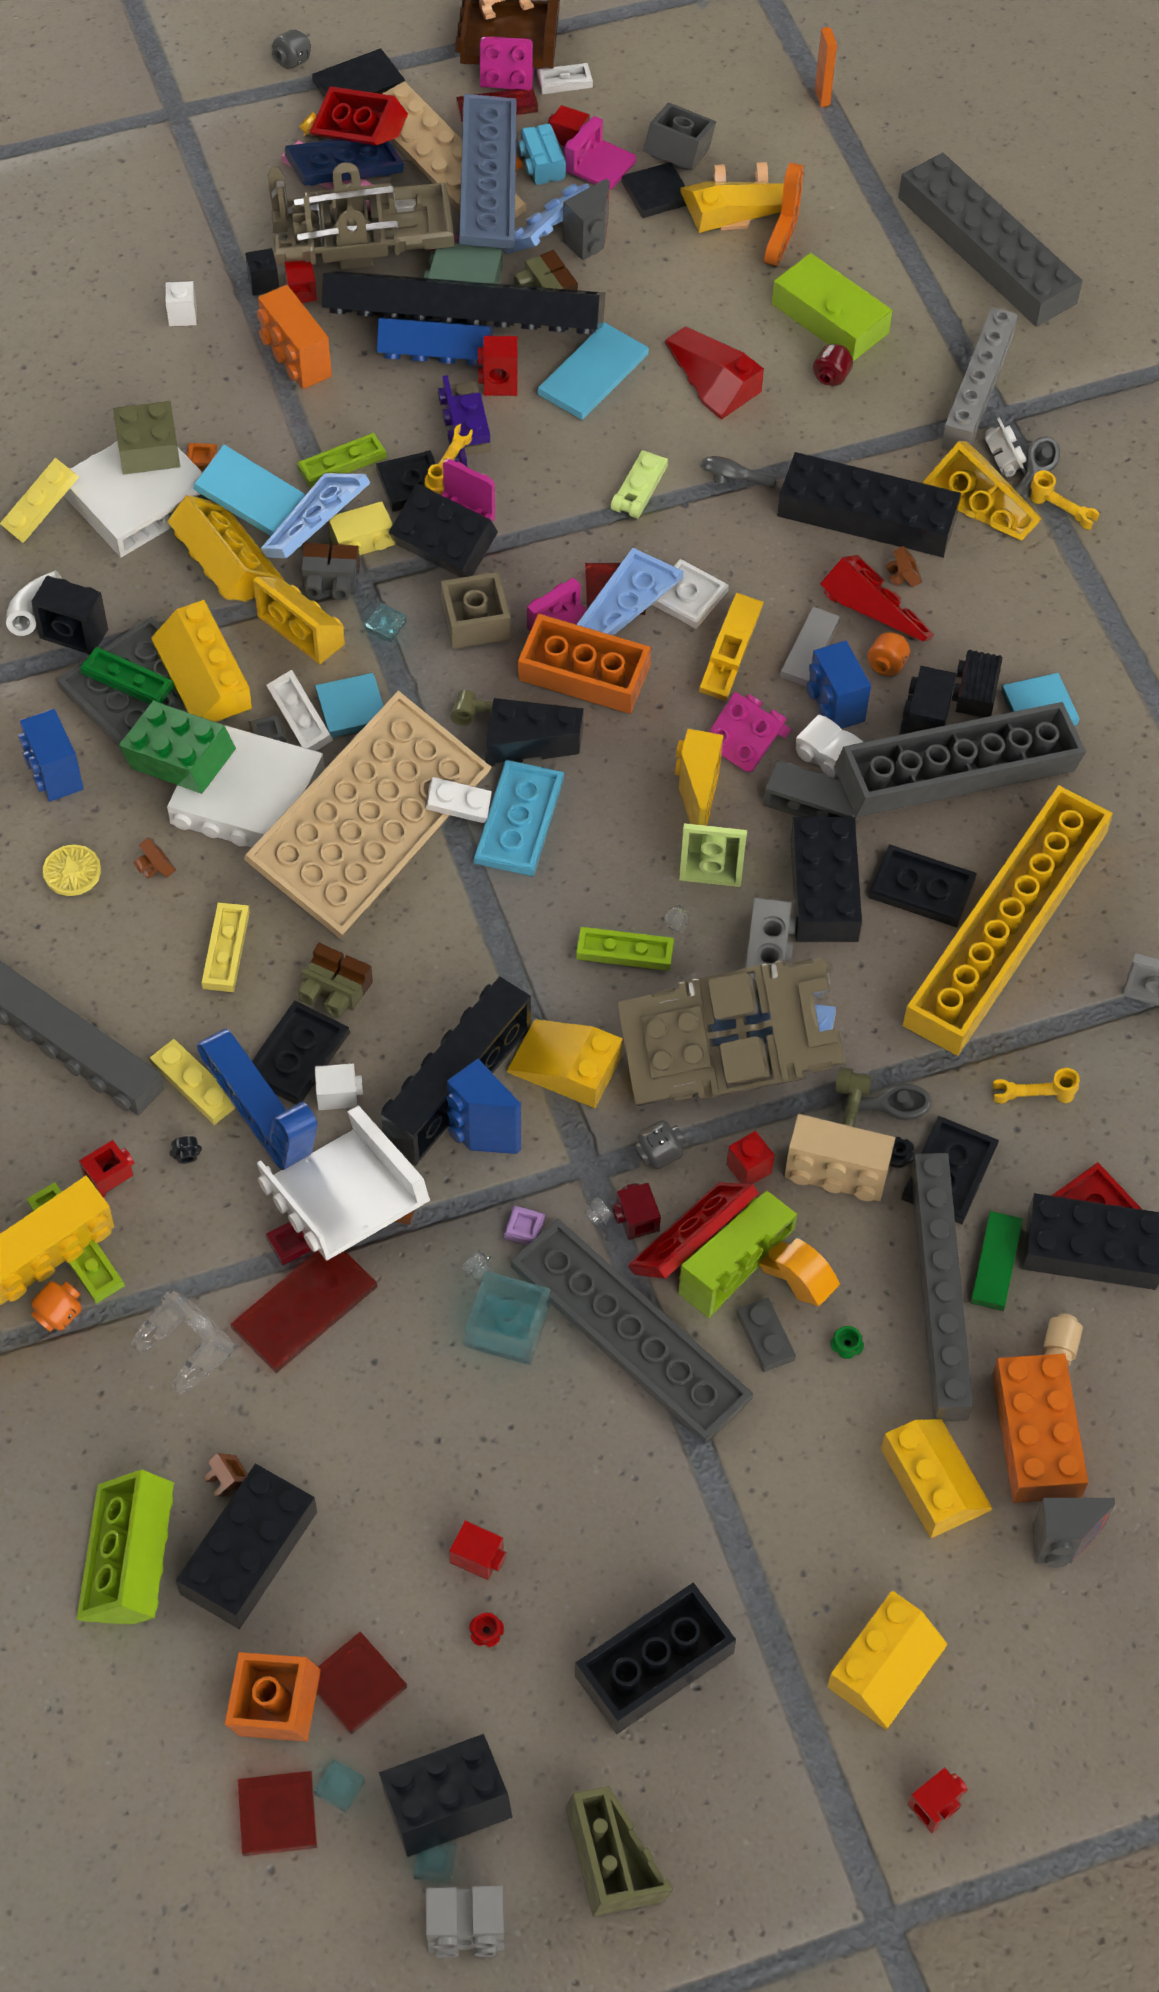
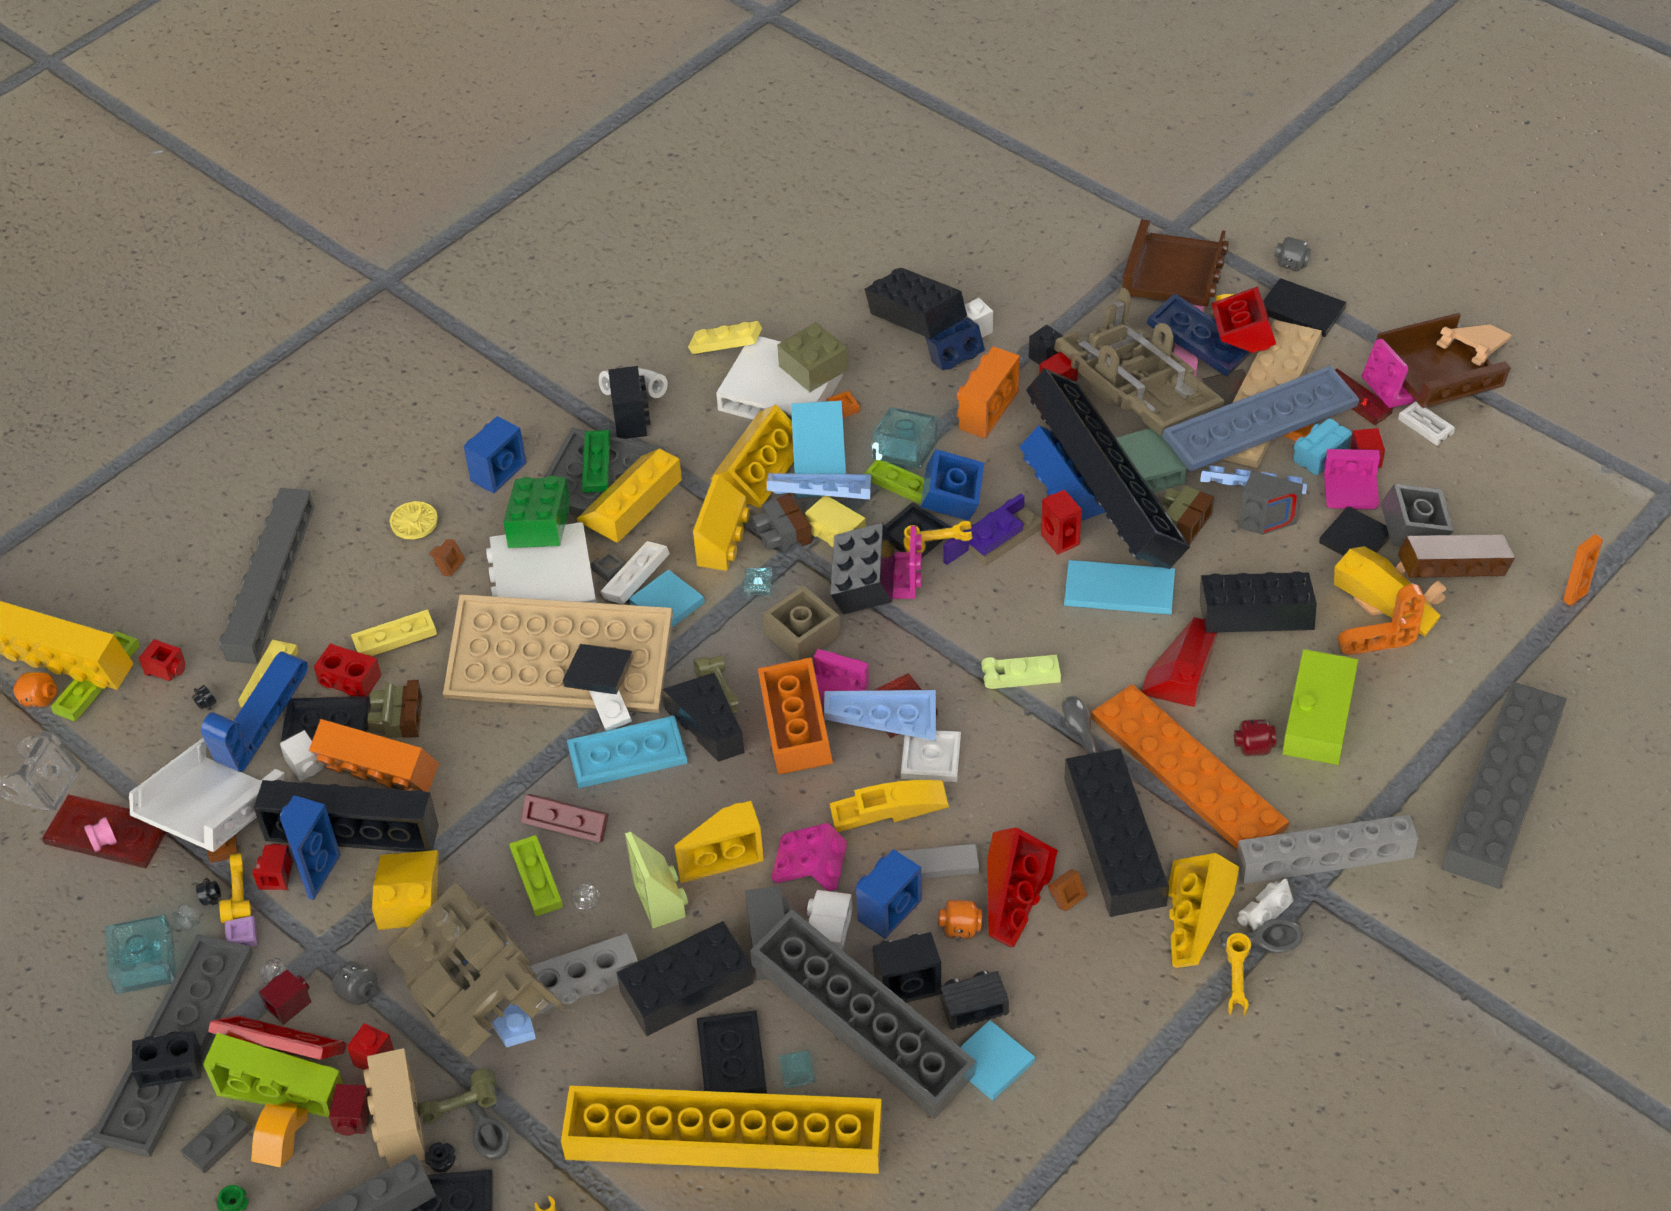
camera: 65 degrees right, 10 degrees down
(130, 331) = (915, 302): none -> black brick
(204, 332) = (954, 340): none -> dark blue brick
(236, 133) = (1172, 265): none -> reddish brown panel
(243, 999) = (347, 671): none -> red brick
(300, 425) = (904, 437): none -> clear light blue brick
(323, 1302) = (100, 834): none -> bright pink wheel
(392, 419) = (952, 485): none -> blue brick
(403, 1013) = (373, 757): none -> orange brick
(428, 783) = (598, 669): none -> black tile
(459, 1234) = (208, 892): none -> black plate
(466, 1163) = (273, 868): none -> red brick
(493, 1218) = (237, 906): none -> yellow brick
(573, 897) = (564, 818): none -> plate
(666, 1333) = (167, 1064): none -> black brick
(693, 285) = (1257, 602): none -> black brick
(742, 136) = (1456, 556): none -> brick
(812, 1200) = (349, 1109): none -> dark red brick
(829, 427) = (1187, 768): none -> orange plate
(966, 844) = (796, 1069): none -> clear light blue plate

